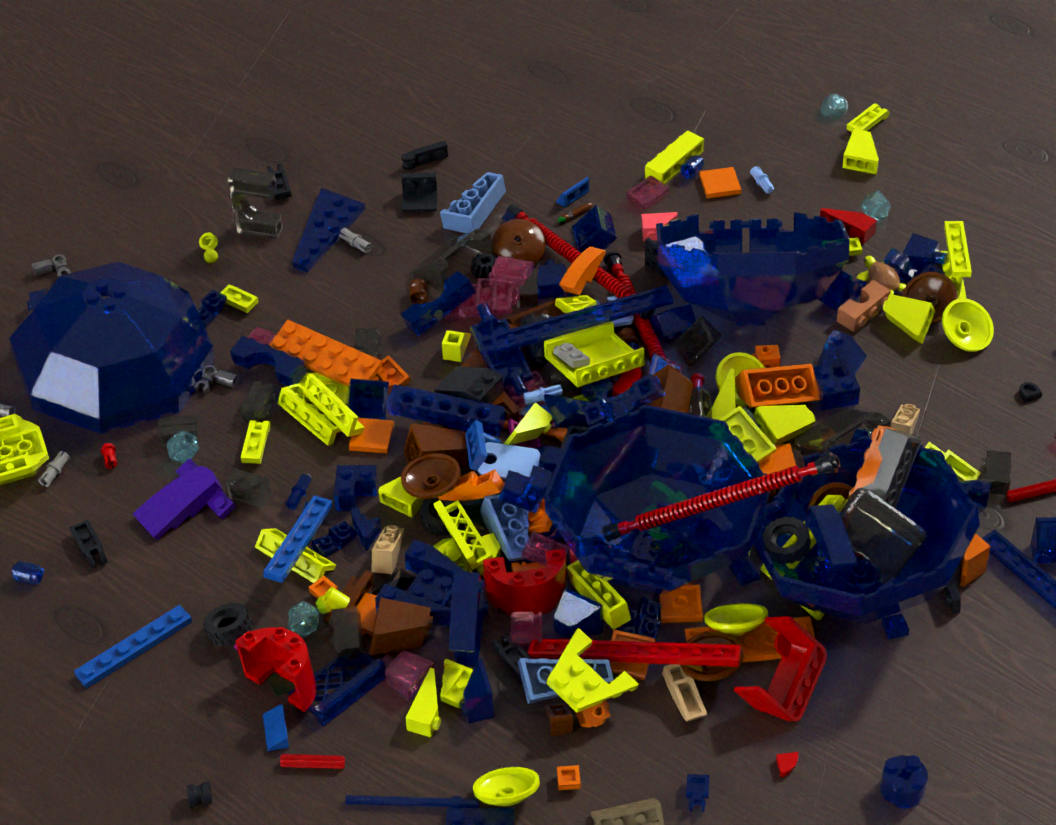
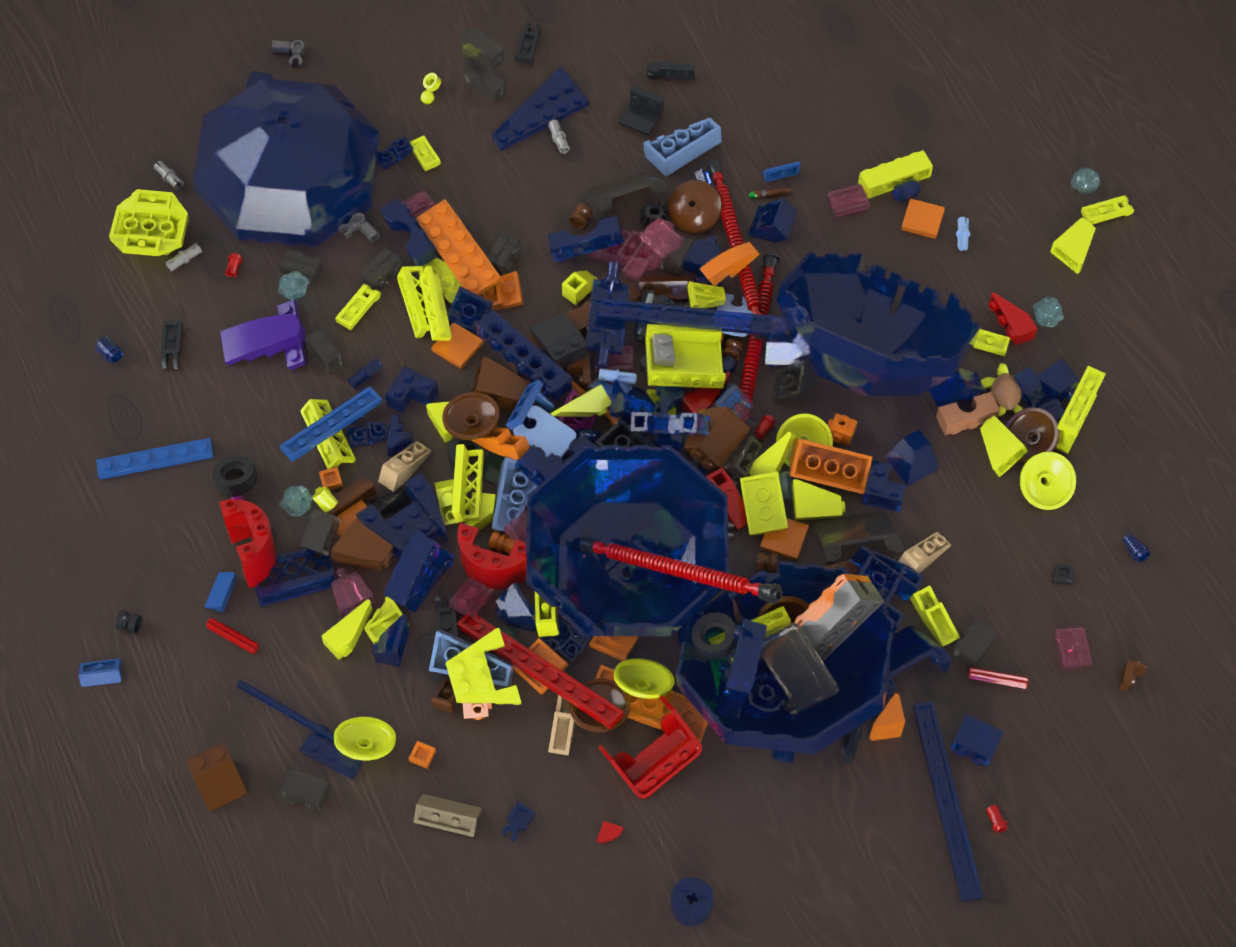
camera: 25 degrees right, 15 degrees up
(649, 222) = (834, 241): coral slope -> none

